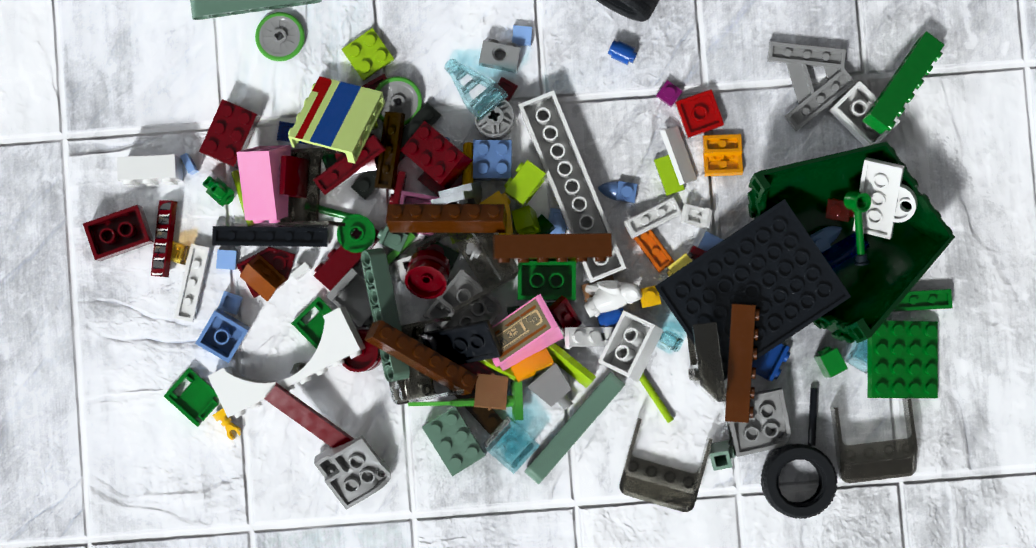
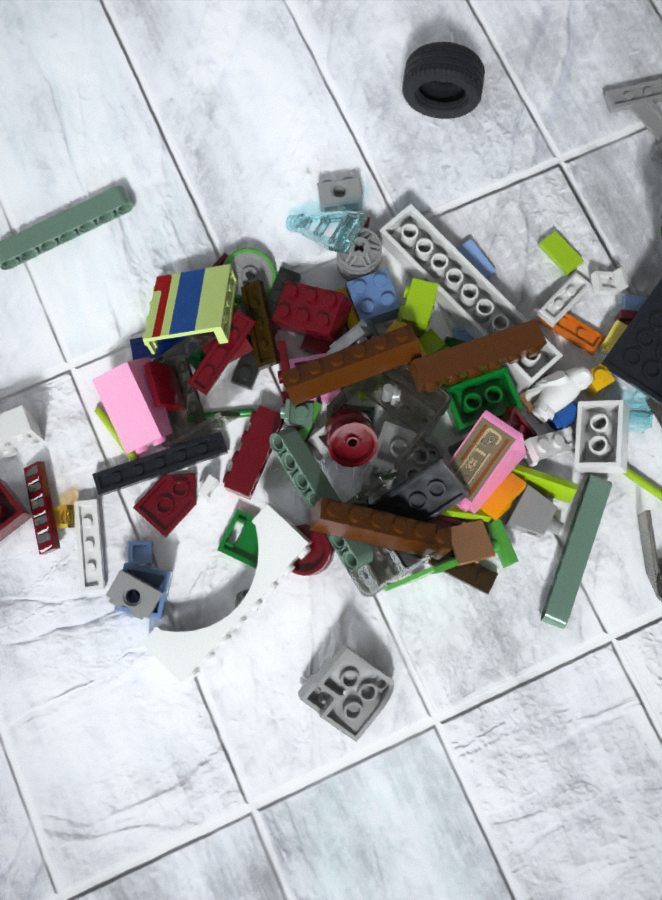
camera: 25 degrees left, 10 degrees down
(189, 163) = (44, 417): light blue tile -> none
(196, 399) = (137, 677): green container -> none
(213, 327) = (123, 584): none -> light grey brick
(219, 191) = (87, 433): green hips -> none
(226, 259) = (120, 506): light blue tile -> none
(229, 133) = (75, 366): dark red brick -> none
(229, 426) = (181, 690): yellow piece -> none
(262, 277) = (167, 510): dark orange panel -> none
(274, 25) = (89, 249): light grey wheel -> none
(307, 416) = (272, 647): dark red tile -> none
(353, 294) = (279, 490): light grey panel -> none
(365, 240) = (251, 434): green plate -> none
(367, 54) = (200, 242): lime plate -> none
(453, 441) = (450, 614): sand green brick -> none
(511, 444) = (516, 593): clear light blue brick -> none
(522, 35) = (354, 169): light blue tile -> none
(592, 155) = (476, 258): none -> light blue tile
(619, 191) = (519, 286): medium blue plate -> none
(622, 52) = (463, 150): blue brick -> none
(669, 93) = (526, 175): magenta plate -> none
(678, 155) = (563, 230): white tile -> none
(699, 113) = (566, 182): red plate -> none
(722, 155) = (607, 215): light orange slope -> none

